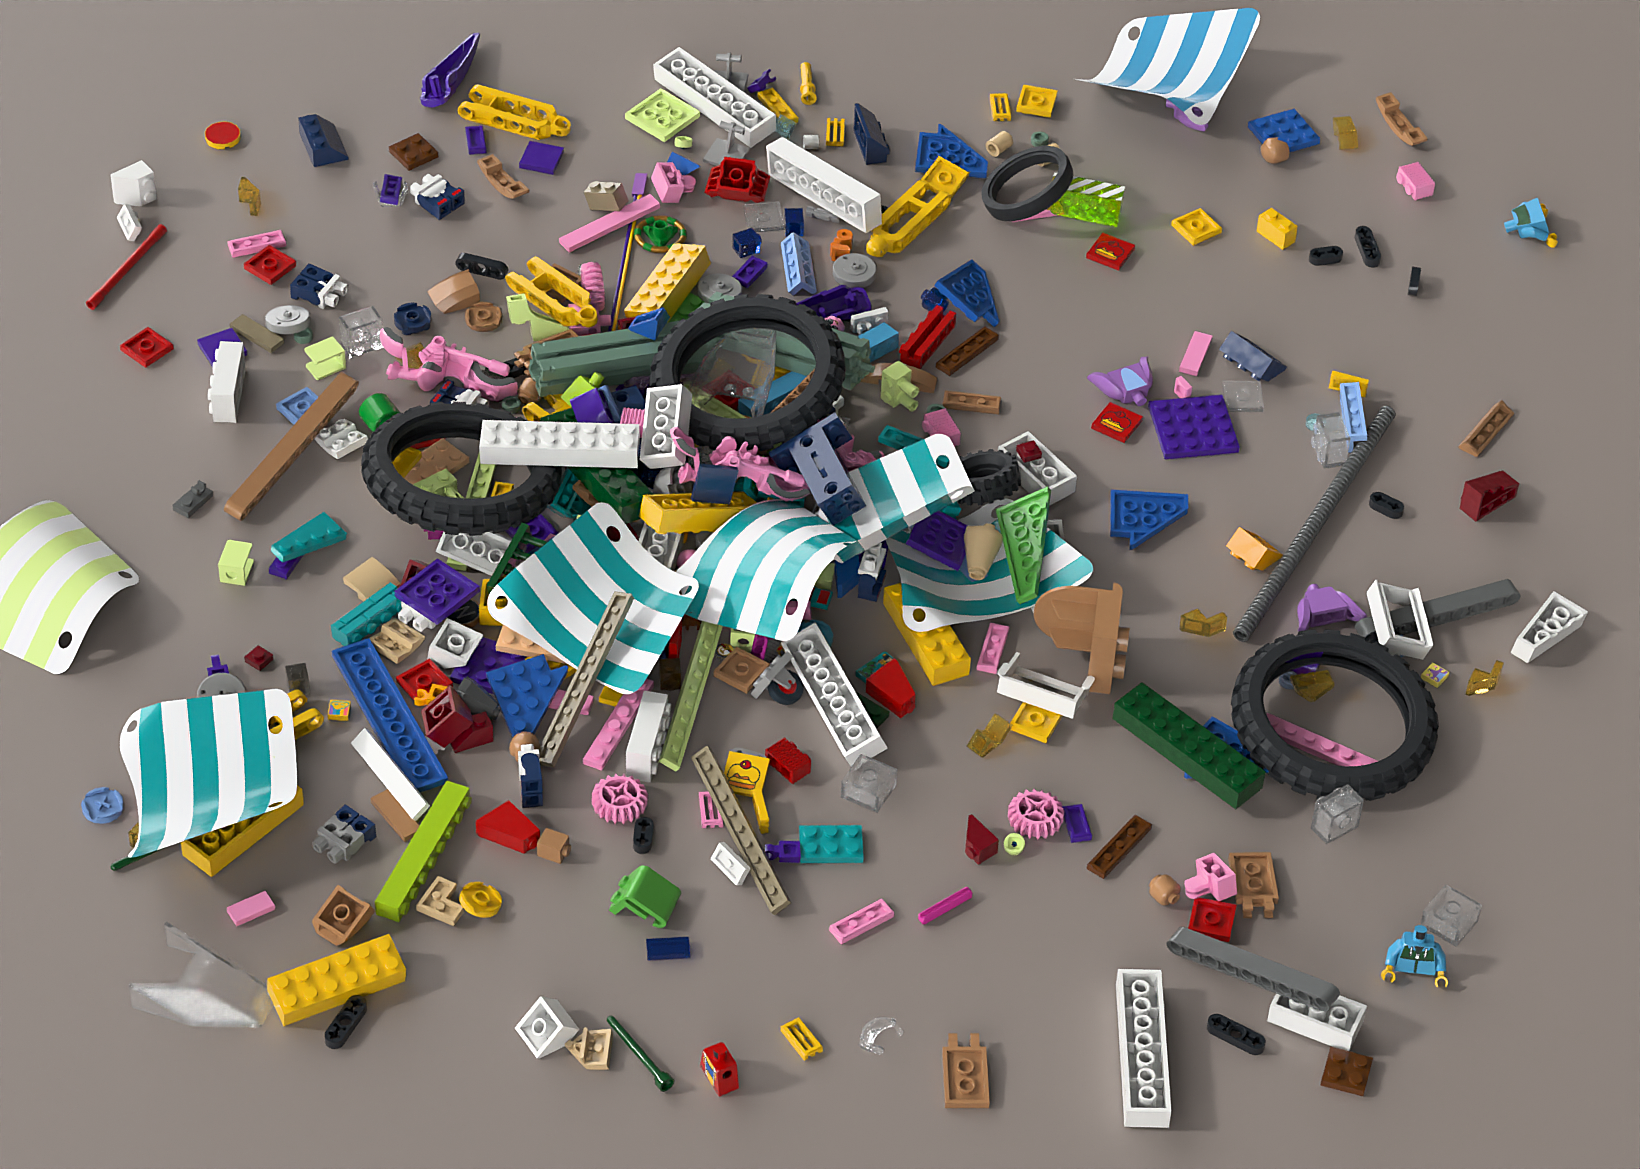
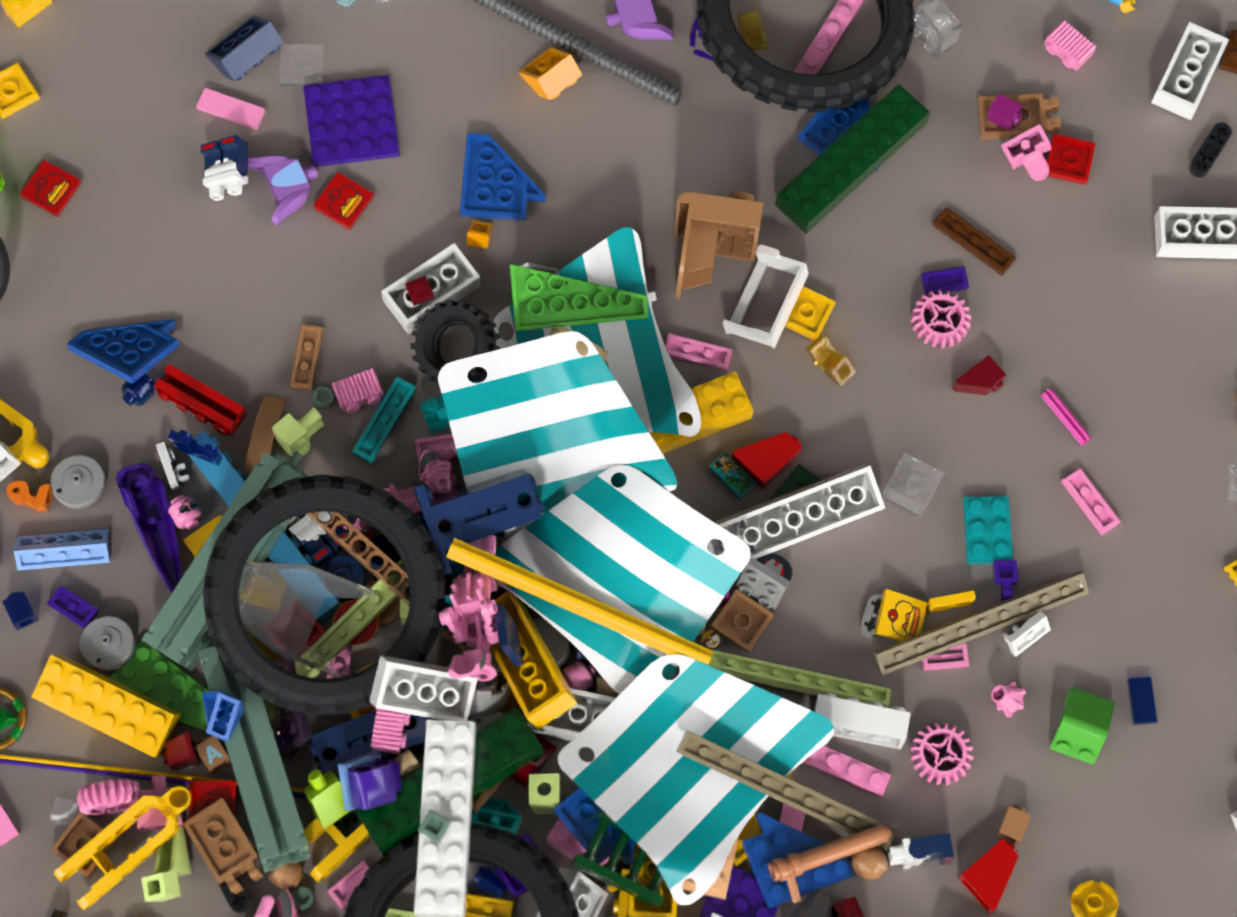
camera: 90 degrees left, 25 degrees up
(520, 681) = (796, 863): none -> nougat cylinder
(550, 424) = (434, 826): none -> sand green tile
(644, 835) = (987, 722): black beam -> none
(669, 844) = (1008, 698): none -> bright pink rock
(740, 525) = (576, 602): none -> yellow axle
(788, 760) = (876, 571): red brick -> none
(881, 317) = (185, 443): none -> clear blue plate
(967, 351) = (219, 358): reddish brown tile -> none
(1014, 844) = (980, 343): yellowish green tile -> none
(1095, 507) = (479, 234): none -> light orange slope
(1136, 344) = (225, 166): none -> hips
(1164, 889) = (1038, 199): medium nougat head -> none
(1182, 388) = (296, 125): bright pink tile -> none
(1196, 623) = (660, 139): clear yellow slope -> none
(1251, 861) = (1005, 112): none -> magenta brick
(1253, 969) = (1153, 120): dark grey beam -> none
(1333, 923) = (1069, 46): none -> bright pink brick

